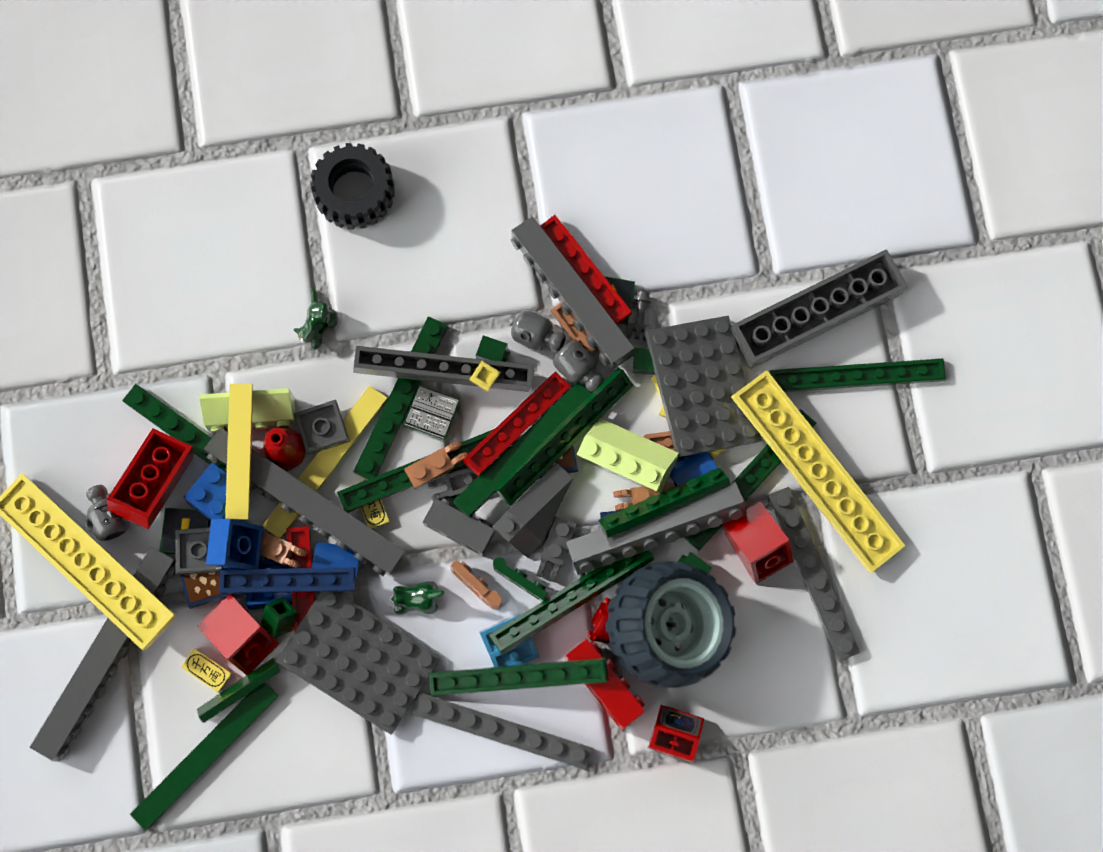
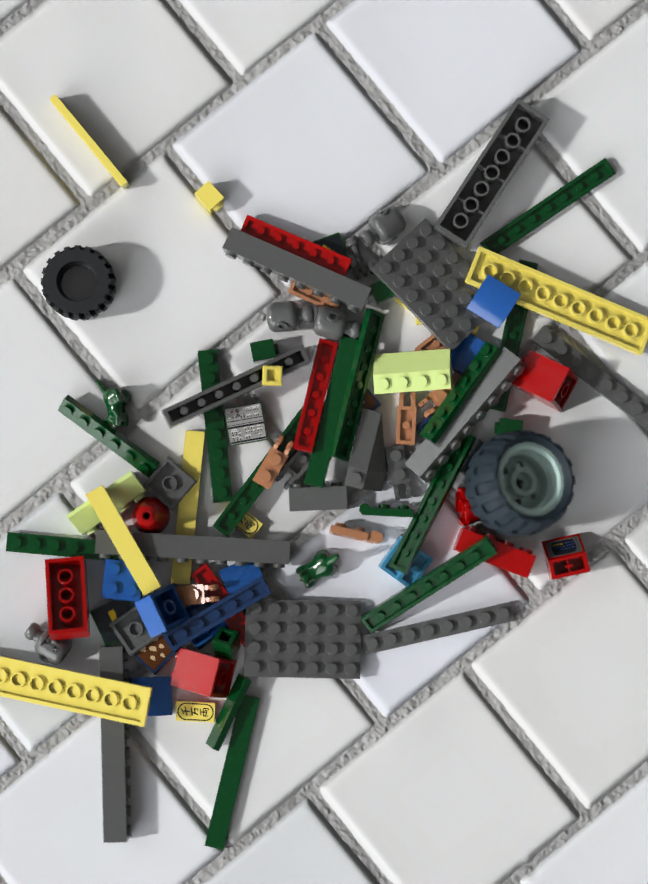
camera: 30 degrees left, 10 degrees up
(180, 632) = (161, 694): none -> blue slope
(290, 347) = (108, 436): none -> dark green plate
(446, 73) = (89, 141): none -> light yellow tile
(529, 179) = (210, 197): none -> light yellow brick
(593, 502) = (406, 421): none -> nougat hinge
(682, 300) = (383, 226): none -> dark grey piece
(749, 431) = (493, 301): none -> blue slope

